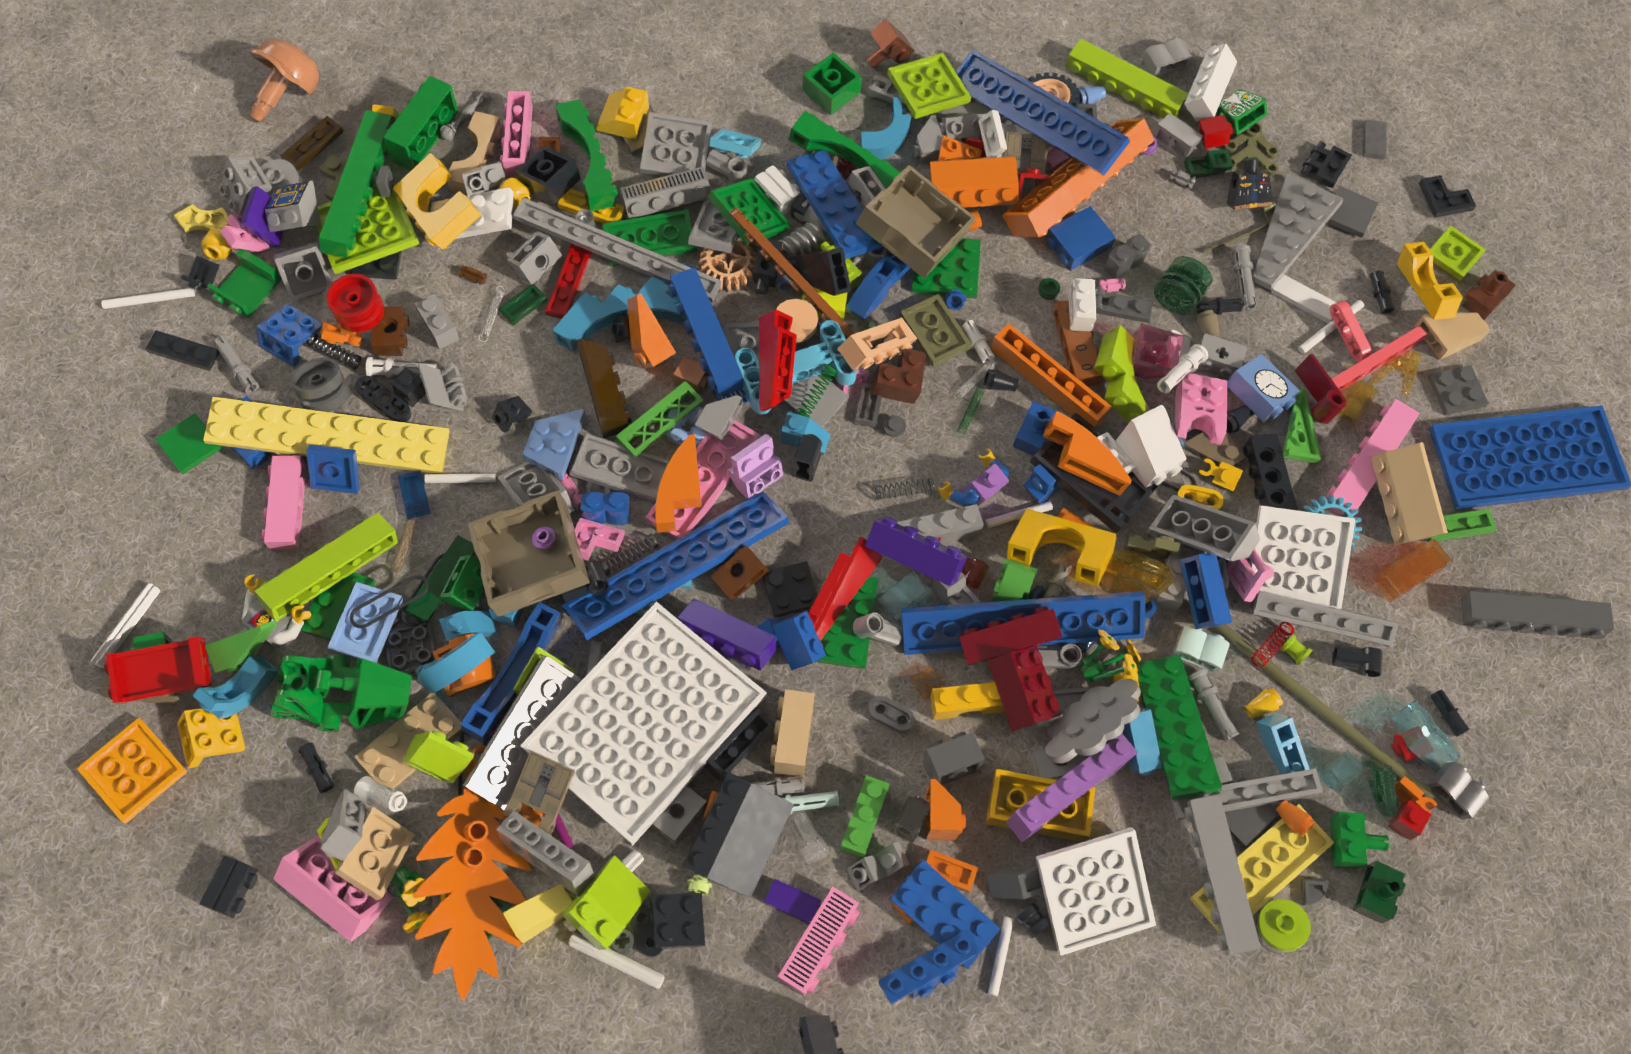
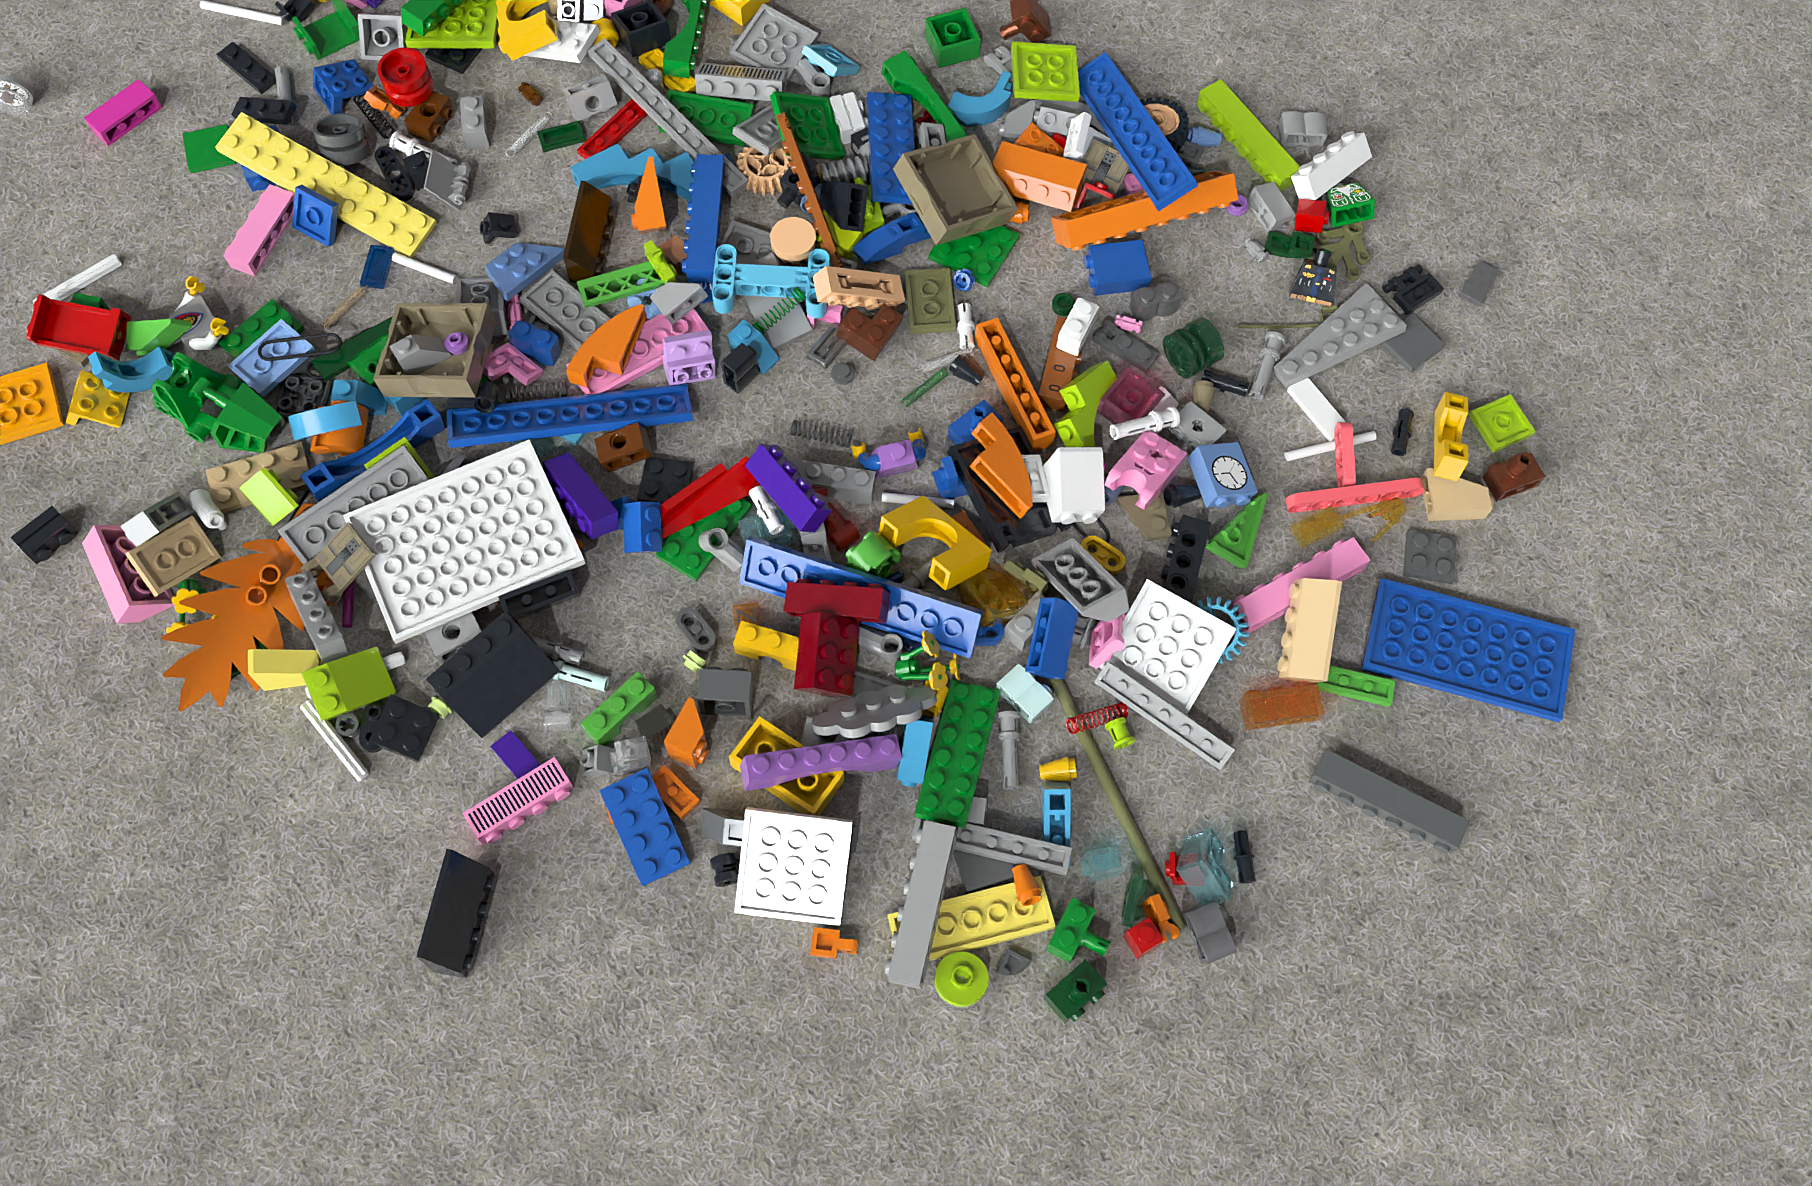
camera: 25 degrees right, 0 degrees up
(82, 440) = (123, 112): none -> dark pink brick
(225, 385) = (265, 110): none -> black plate
(316, 767) = (169, 466): black pin -> none
(326, 566) = (264, 296): lime brick -> none
(514, 563) = (419, 353): none -> light grey slope
(684, 387) = (656, 258): none -> lime plate
(775, 358) = (752, 264): red wedge -> none
(792, 733) = (592, 607): tan brick -> none
(901, 578) = (766, 510): none -> white pin
(904, 743) = (693, 661): none -> yellowish green plate
(904, 854) = (630, 755): none -> clear brick
(929, 969) = (603, 869): blue bracket -> none
(1000, 956) = (680, 888): white bar -> none
(1154, 945) = (828, 942): none -> orange plate
(1224, 475) = (1139, 541): yellow plate -> none
(1323, 389) = (1285, 501): dark red door -> none
(1365, 660) = (1182, 771): black piece -> none
(1444, 202) = (1516, 368): black plate -> none

